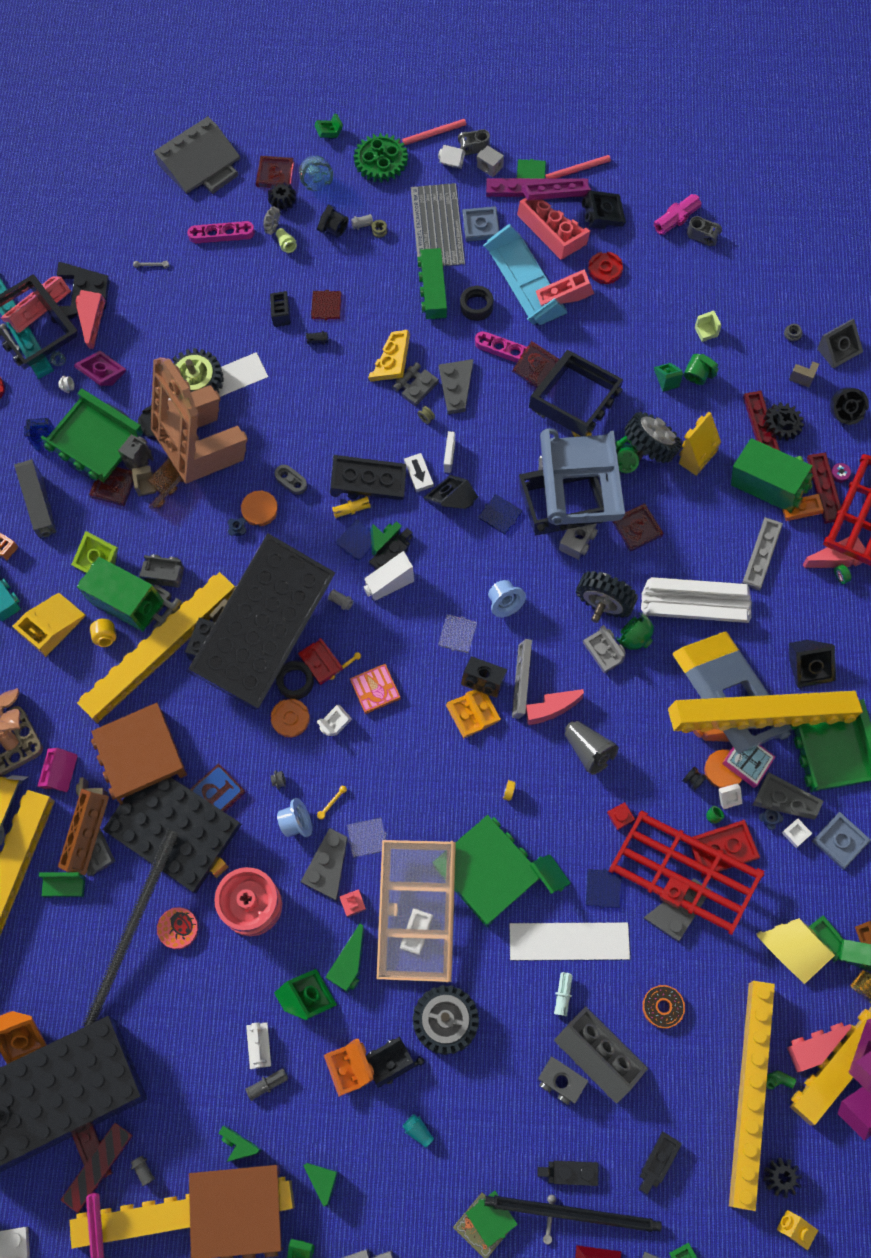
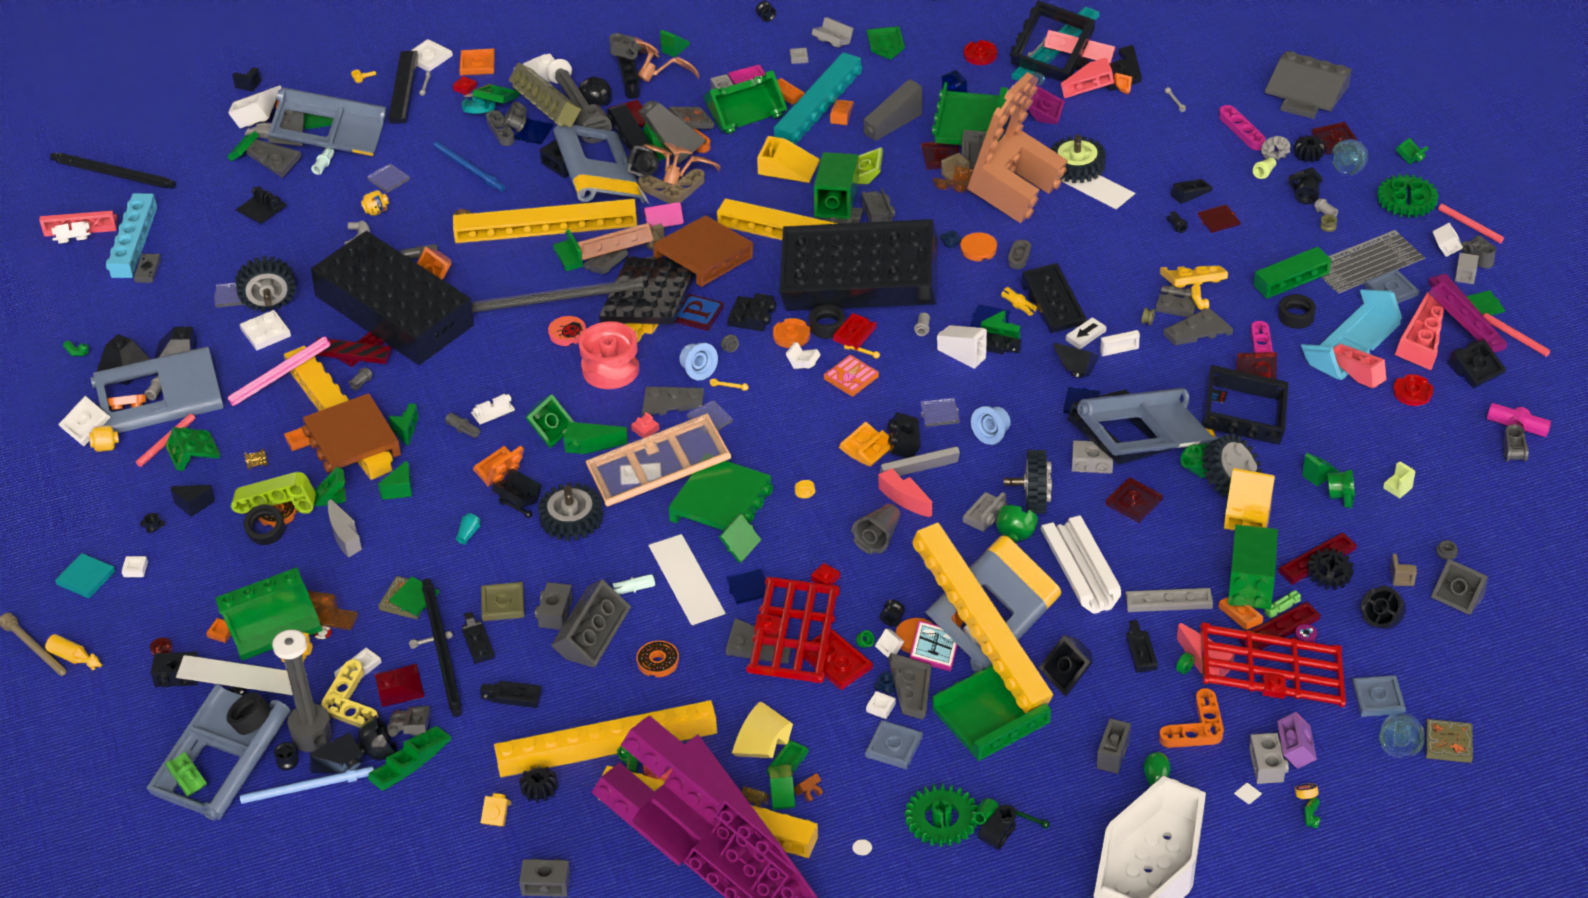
camera: 65 degrees right, 25 degrees down
(103, 632) = (798, 194): yellow head -> none
(110, 293) = (1123, 82): none -> orange tile
(244, 742) = (752, 312): none -> black plate
(427, 367) = (1196, 296): none -> yellow arm
(528, 1129) = (502, 601): none -> olive tile
(811, 599) = (1140, 648): none -> black hinge

